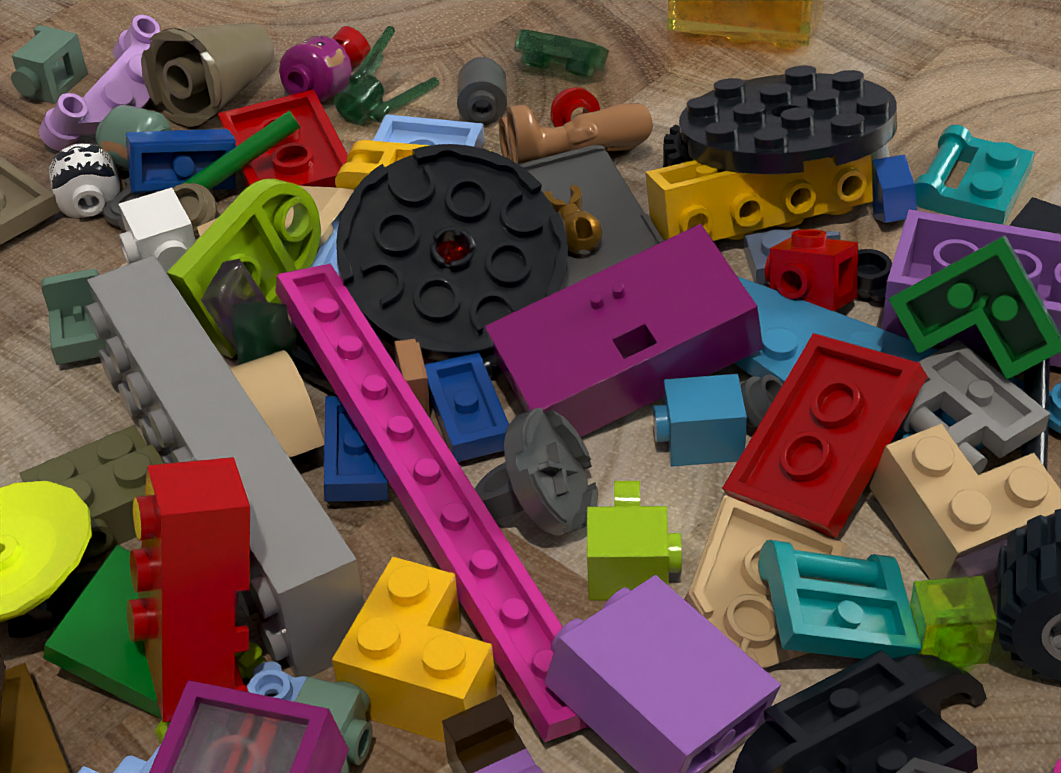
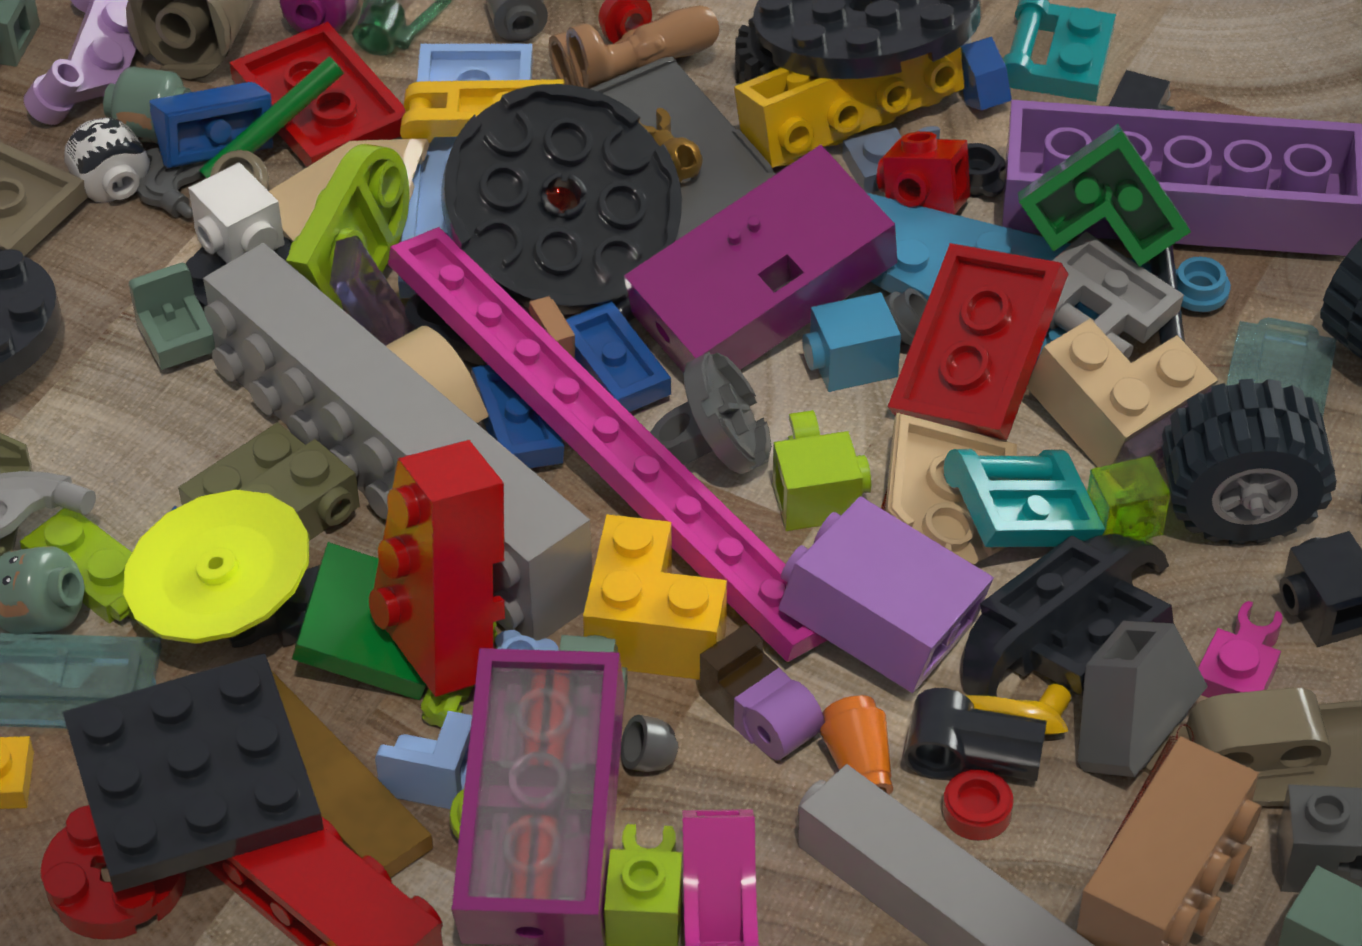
camera: 15 degrees left, 5 degrees up
(261, 330) = (392, 308): clear green plate -> none

